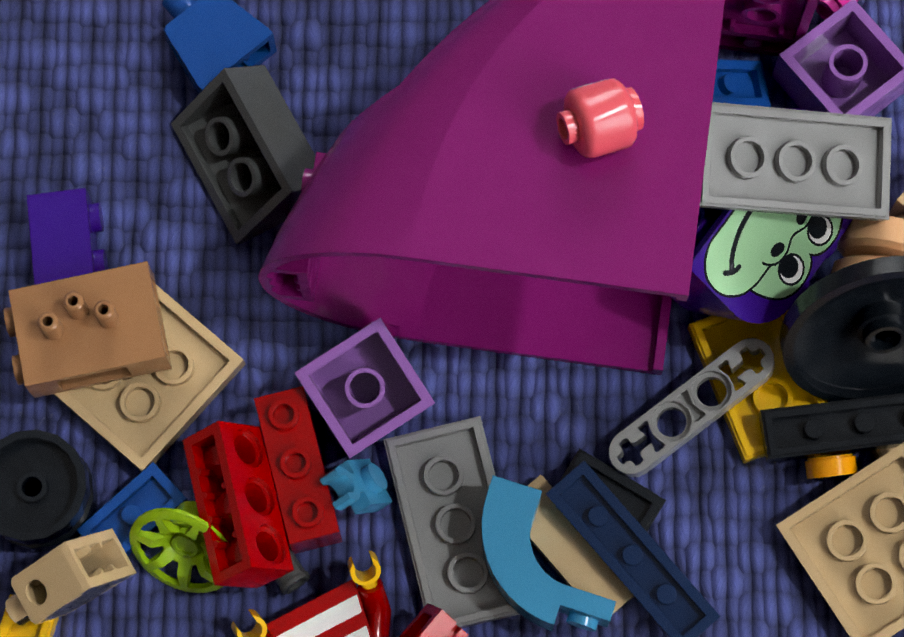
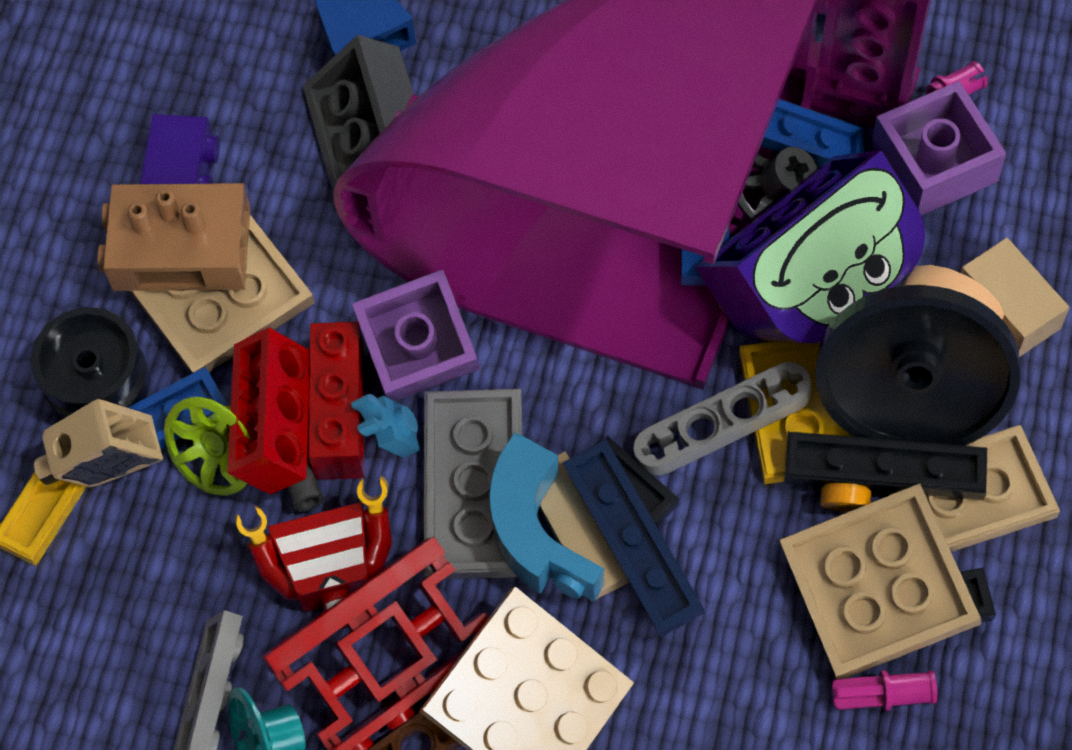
camera: 15 degrees right, 10 degrees down
(600, 118) = (666, 81): coral head -> none
(797, 162) = (858, 193): light grey tile -> none

